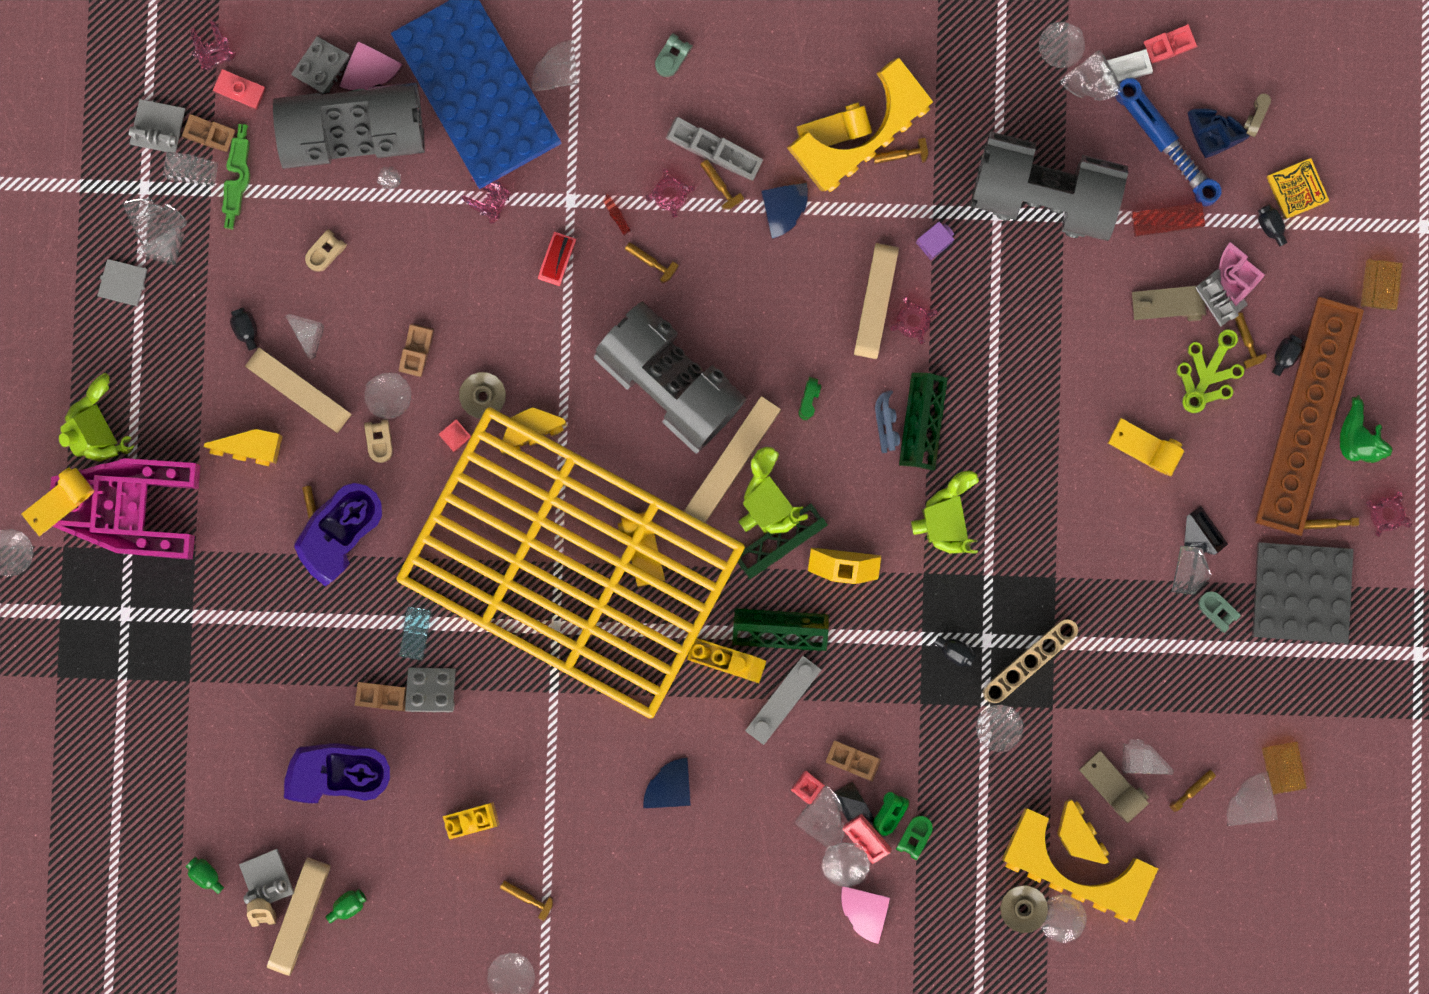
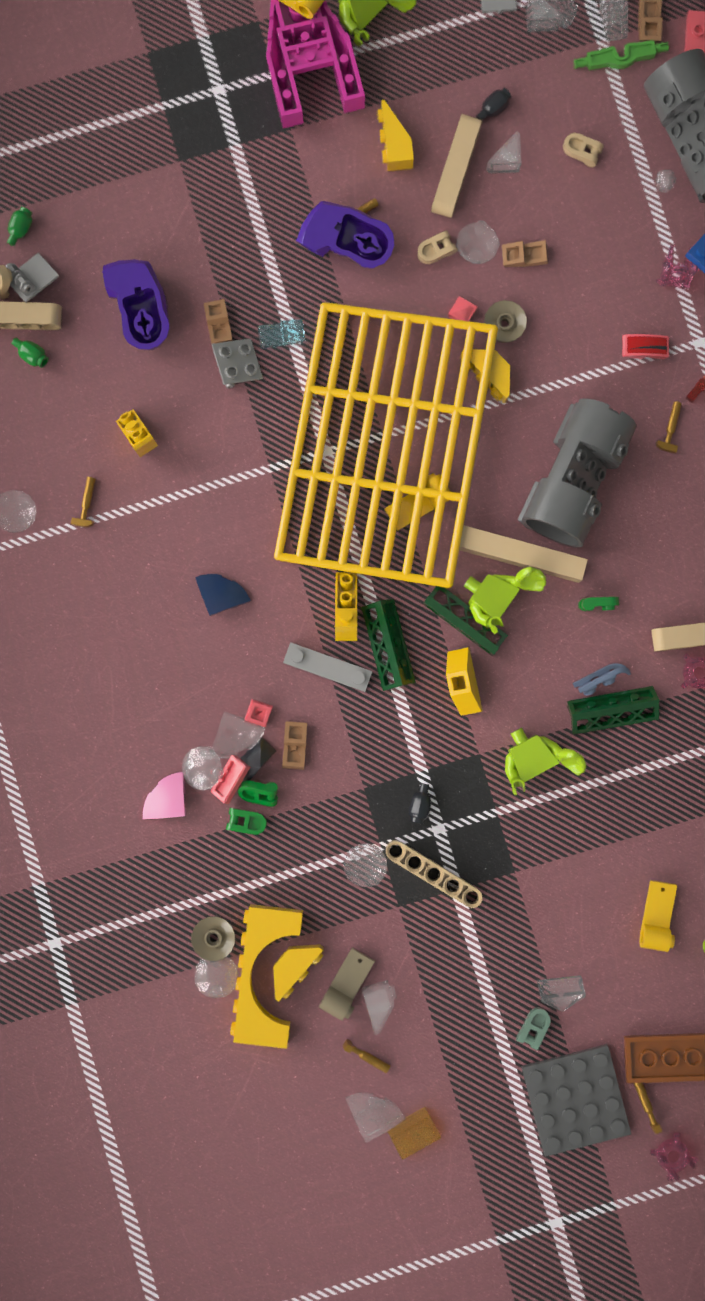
camera: 75 degrees right, 0 degrees up
(1203, 533) = (598, 992): black slope -> none

